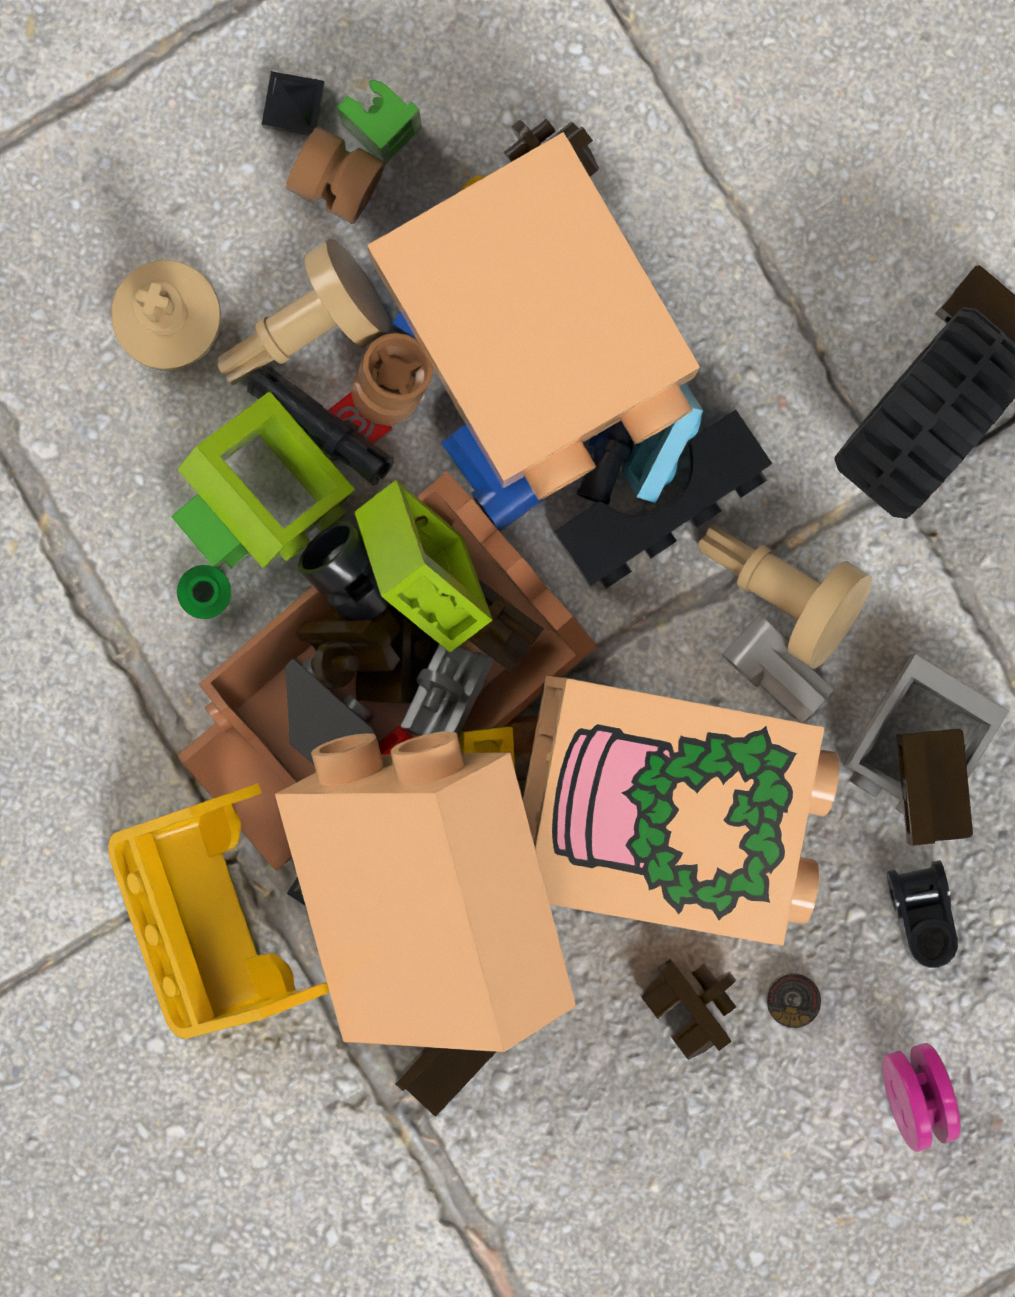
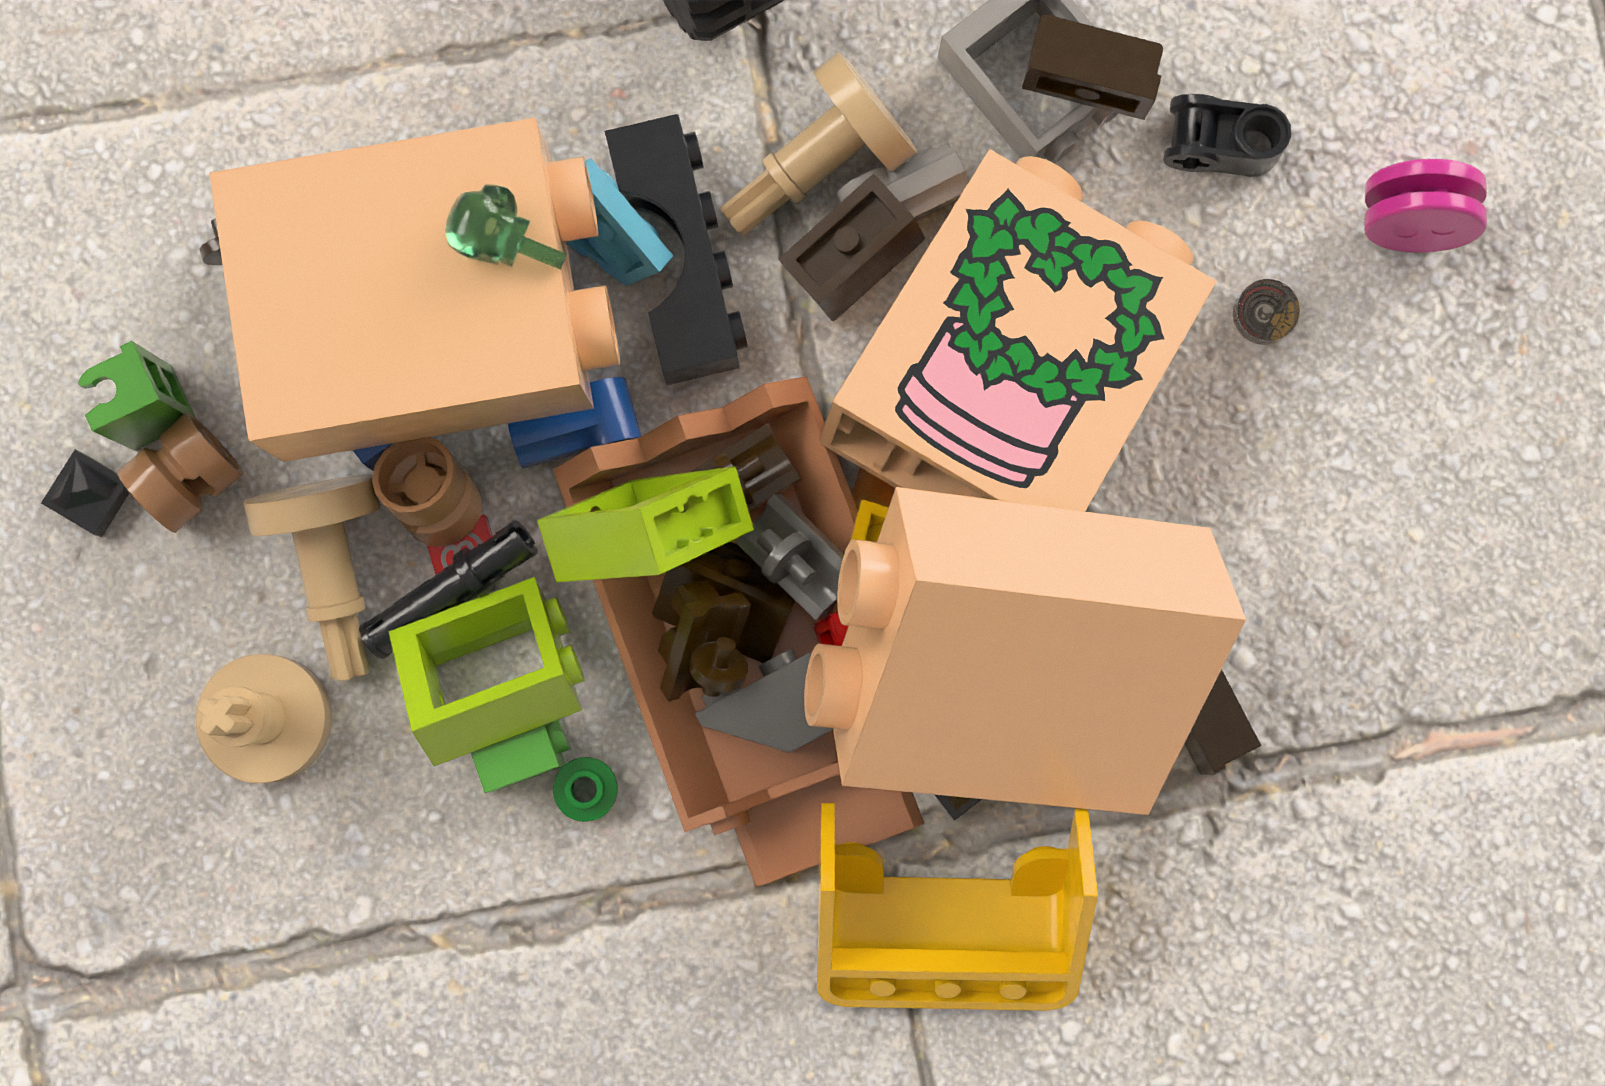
camera: 70 degrees left, 5 degrees down
(340, 567) = (620, 614): black wheel -> none
(594, 368) = (487, 229): none -> clear green piece
(608, 452) = (628, 309): black pin -> none
(703, 1029) = (1211, 431): dark brown hips -> none
(714, 644) = (853, 247): none -> dark brown panel

